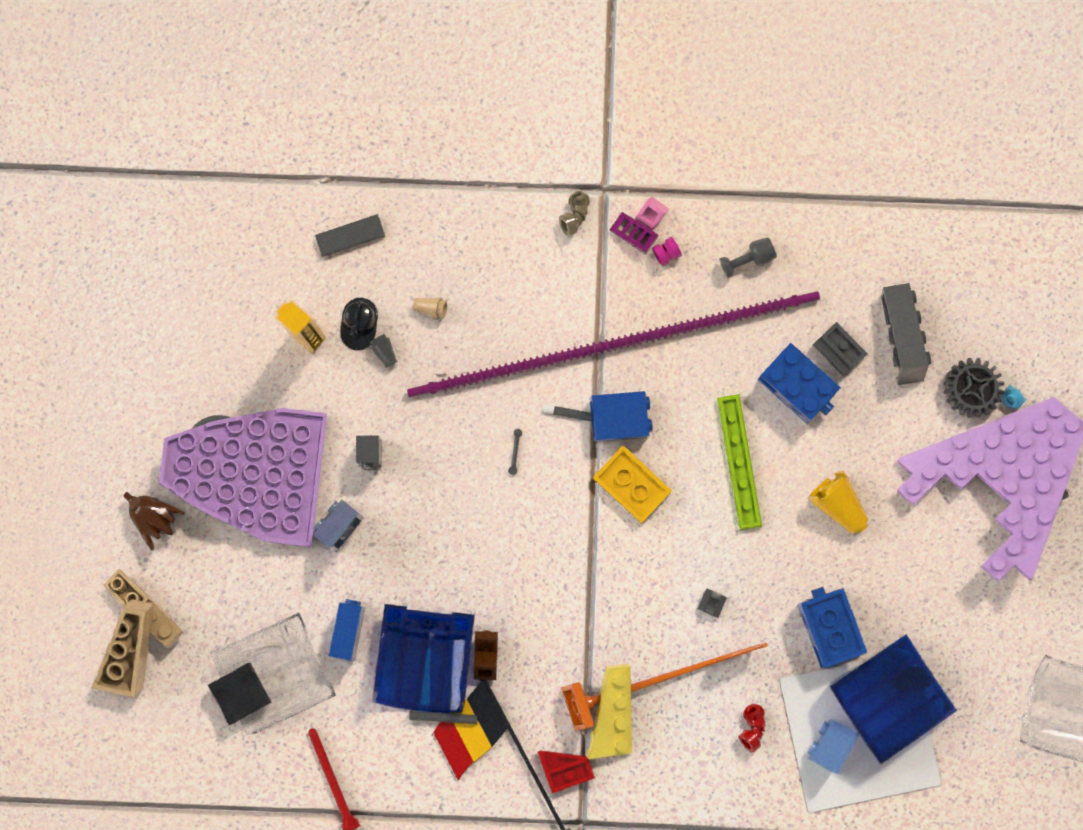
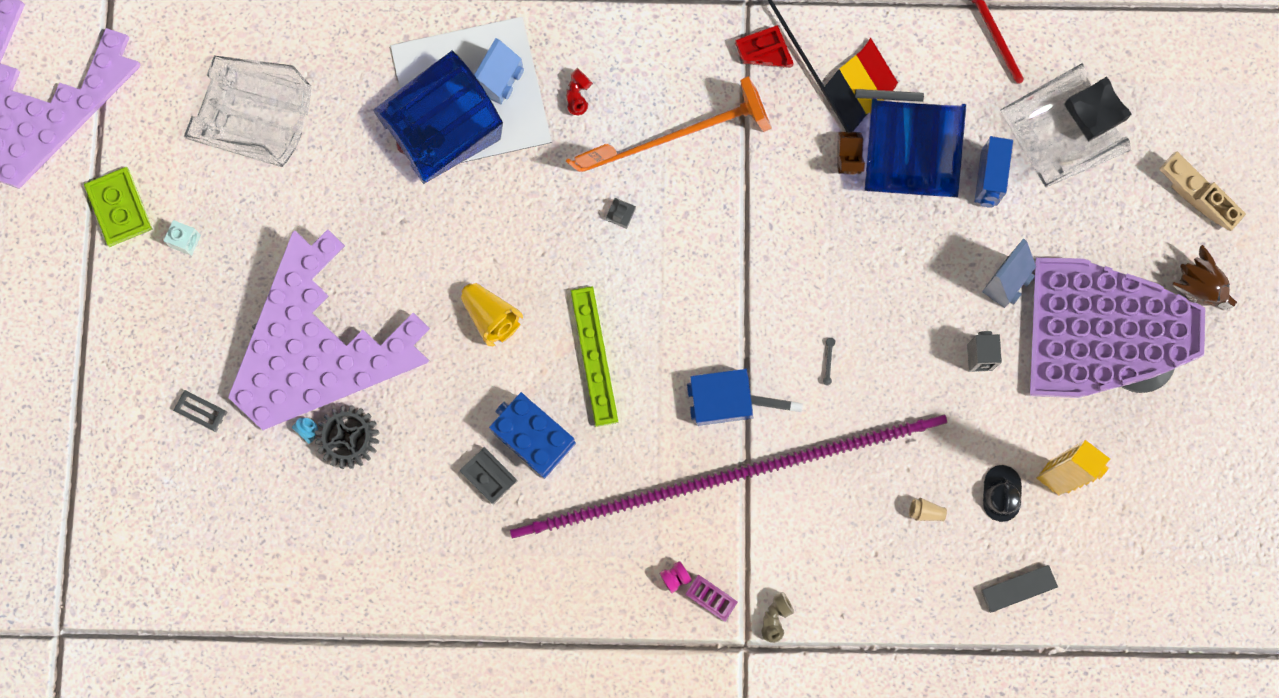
camera: 175 degrees right, 5 degrees down
(127, 652) = (1215, 144): tan wedge -> none
(383, 350) = (974, 463): dark grey cone -> none
(613, 717) = (719, 95): light yellow wing -> none
(632, 484) = (706, 329): yellow plate -> none
(652, 212) = (691, 622): bright pink slope -> none
(760, 252) = (574, 578): dark grey piece -> none
(831, 627) = (499, 186): blue torso -> none
(905, 333) = (418, 493): dark grey wedge -> none

